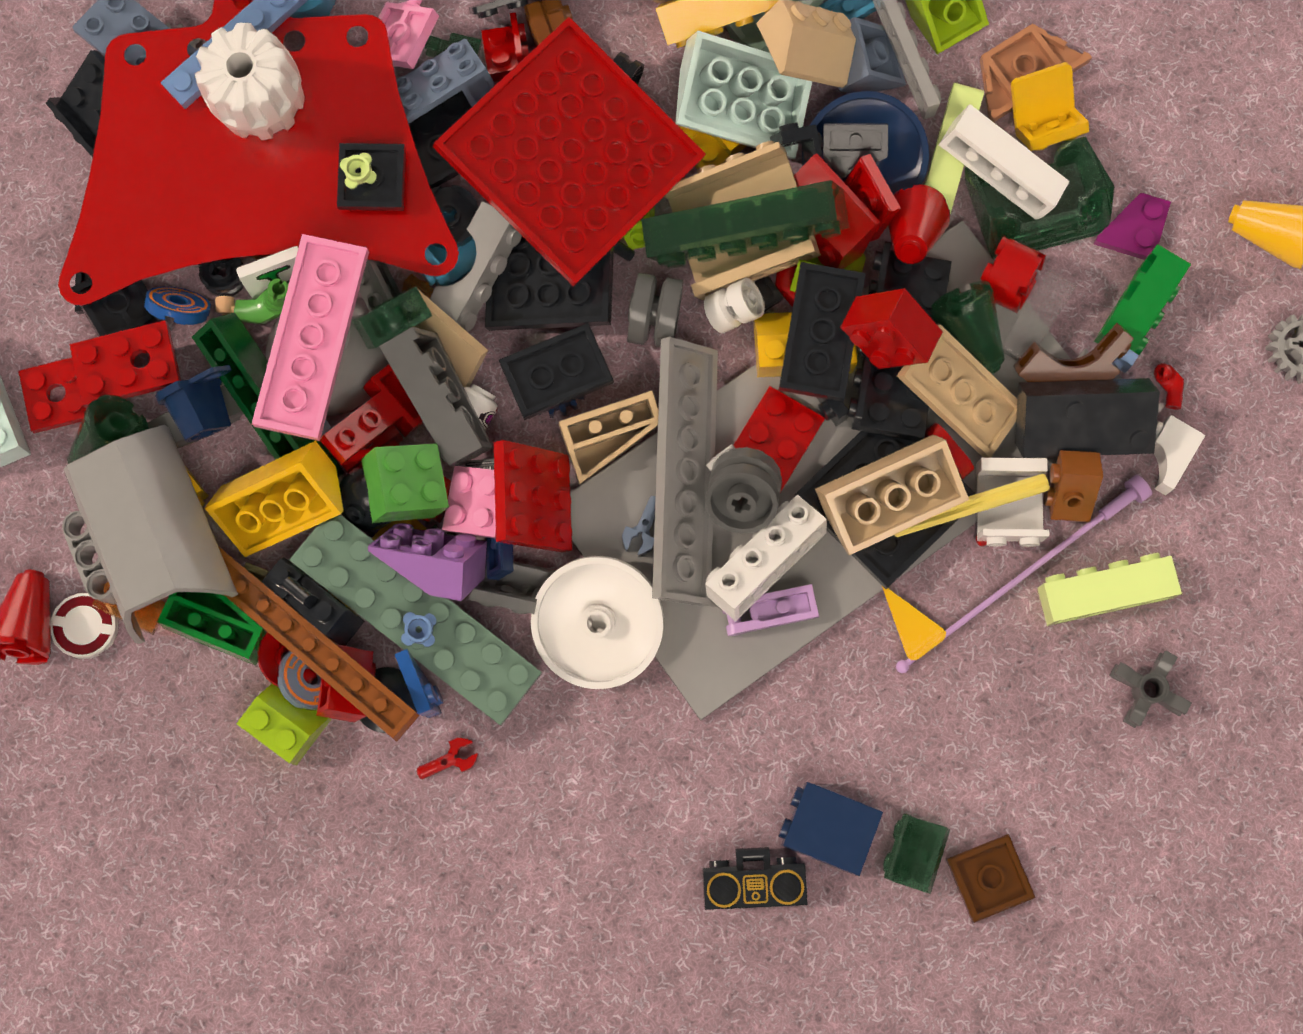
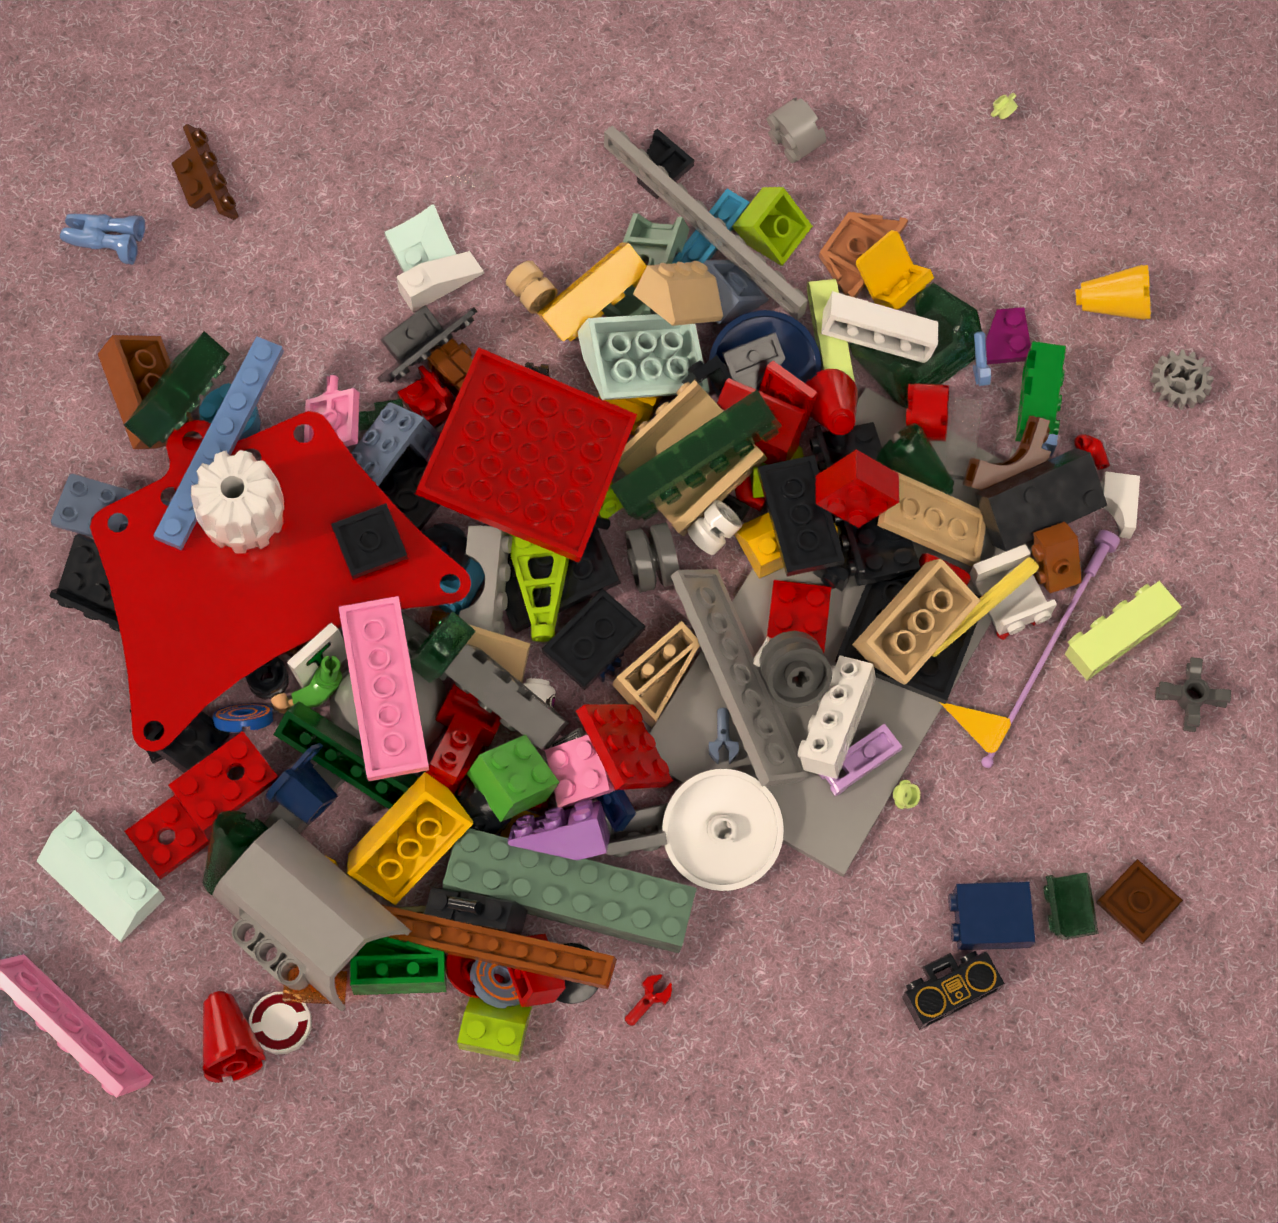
camera: 25 degrees left, 10 degrees down
(350, 165) = (355, 531): yellowish green plate -> none
(412, 622) = (588, 897): medium blue plate -> none
(424, 695) = (596, 941): blue wing -> none
(521, 255) = (521, 553): none -> lime plate
(802, 665) = (906, 794): none -> yellowish green plate
(1093, 250) = (981, 370): none -> medium blue bar

